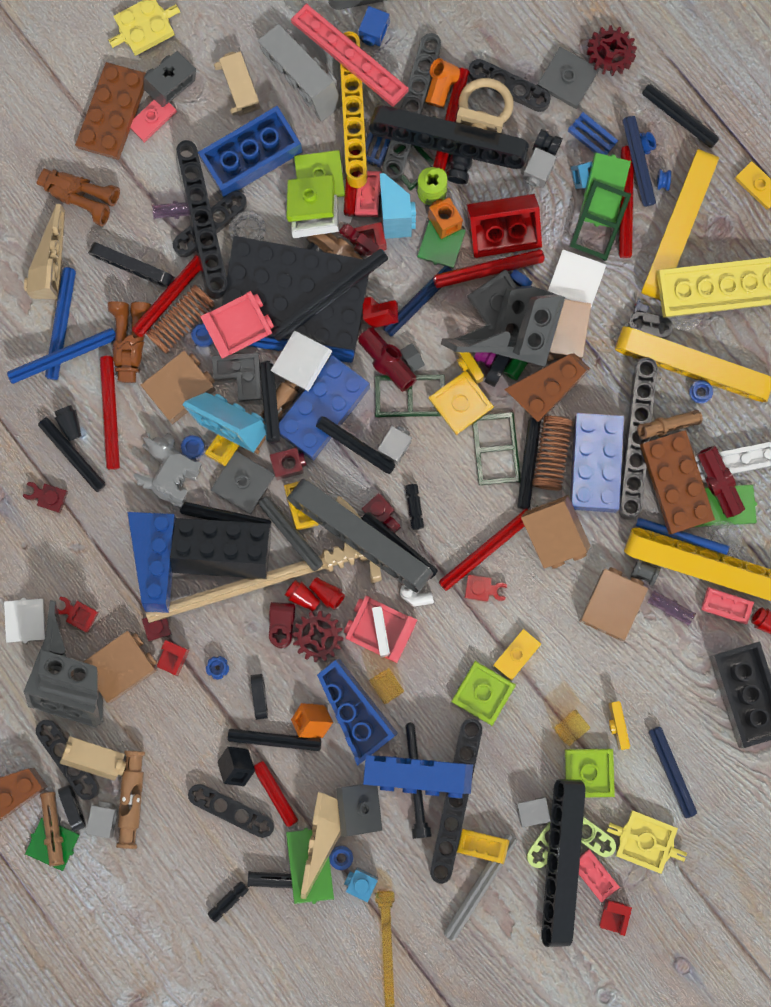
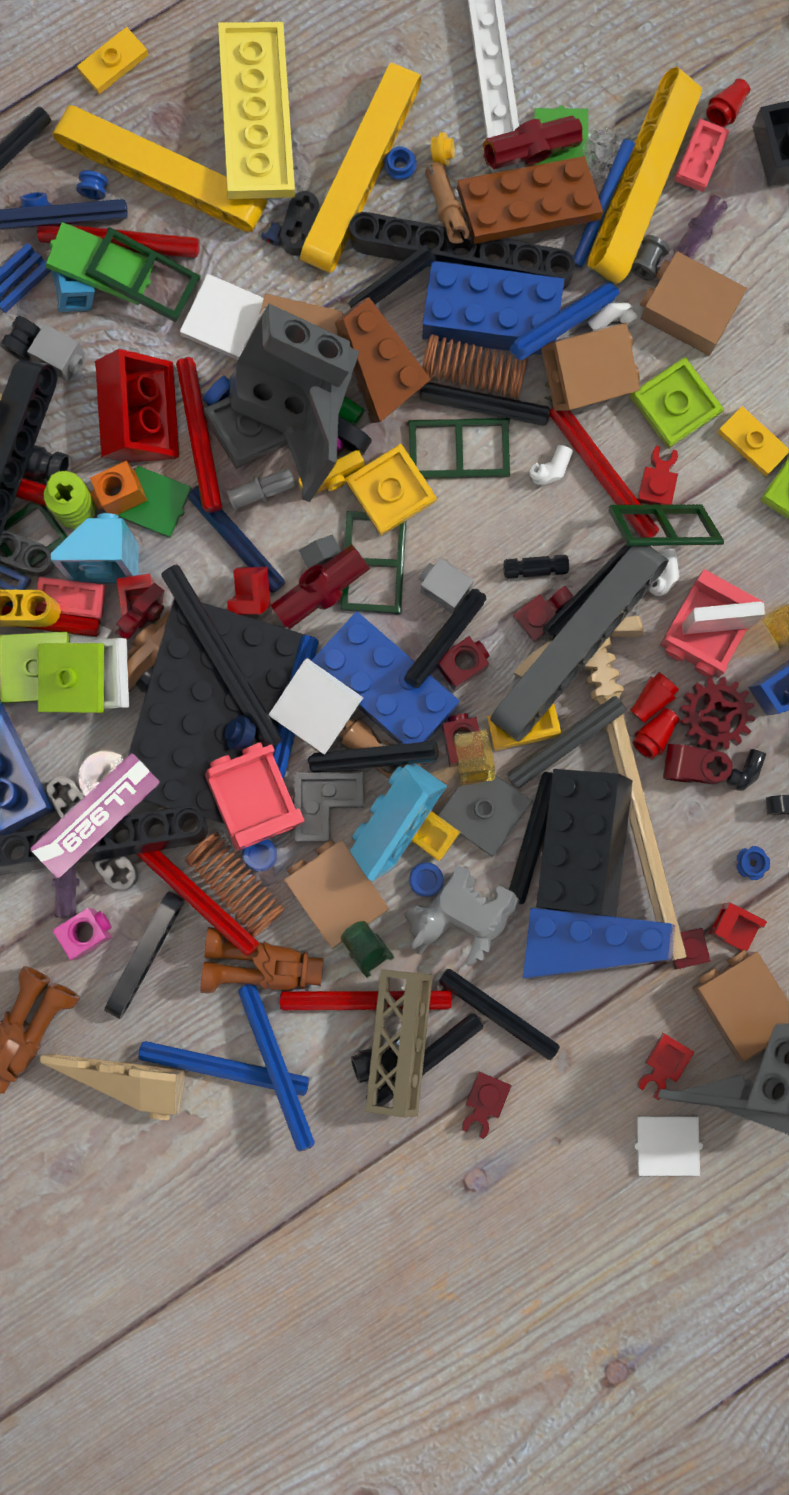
camera: 90 degrees left, 0 degrees up
(79, 439) = (410, 1048): none -> dark tan fence
(105, 501) = (499, 1014): none -> black axle
(138, 216) = (68, 933): none -> dark pink brick
(142, 408) = (365, 947): none -> clear green piece
(216, 221) = (95, 815): none -> sticker
(275, 470) = (474, 757): none -> clear yellow panel
(278, 662) = (750, 772): none -> black arm
(279, 311) = (240, 733): none -> dark blue plate
(340, 450) = (452, 673): none -> dark red brick
(454, 313) = (261, 488): none -> light grey axle
(459, 587) = (659, 511): none -> dark green window
(483, 512) = (552, 471): none -> white arm
(539, 597) = (677, 403): none -> lime plate
(586, 510) = (564, 320): none -> blue axle
(602, 548) = (613, 312): none -> white arm
(610, 391) = (396, 277): none -> black axle
(713, 420) = (442, 149): none -> yellow plate

